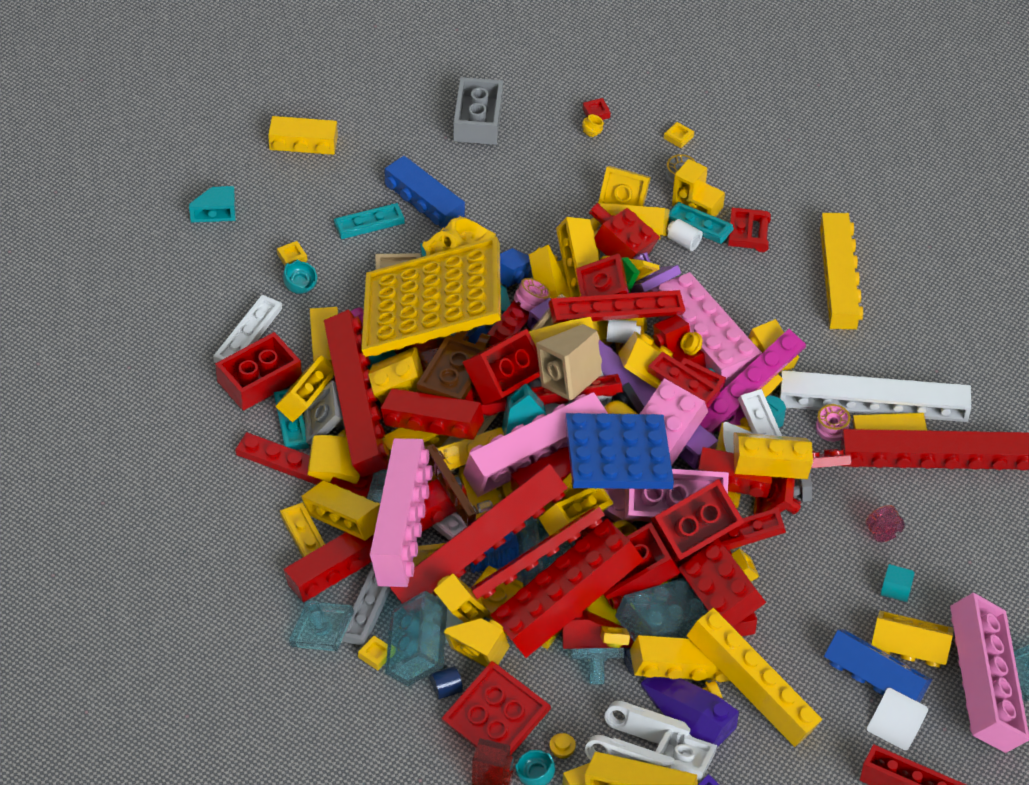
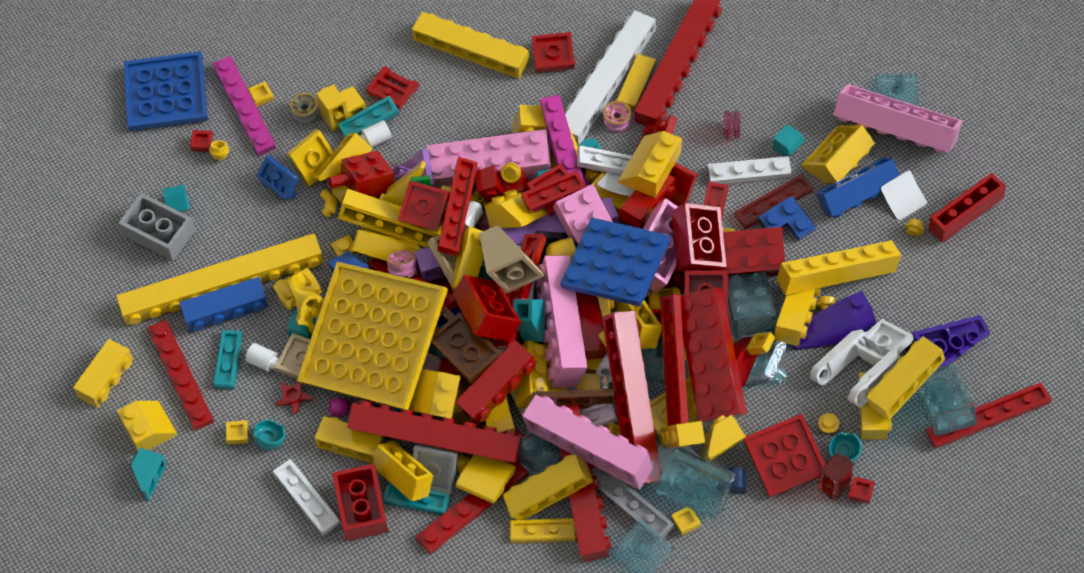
camera: 60 degrees left, 10 degrees up
(265, 185) = (146, 424): none -> yellow slope
(333, 193) = (180, 375): none -> red plate
(353, 282) = (293, 395): none -> red animal
(382, 240) = (261, 357): none -> white brick
(480, 201) = (266, 264): none -> yellow brick
(519, 114) = (176, 198): none -> teal piece
(583, 177) = (277, 178): none -> blue bracket
(635, 64) = (165, 91): none -> blue plate
(653, 130) = (244, 105): none -> dark pink plate
(804, 618) = (788, 214): none -> blue plate
(815, 600) = (749, 214): none -> clear red tile
(841, 565) = (750, 170): none -> white plate
(861, 744) = (914, 227): none -> yellow plate
(877, 341) = (553, 52): none -> red plate

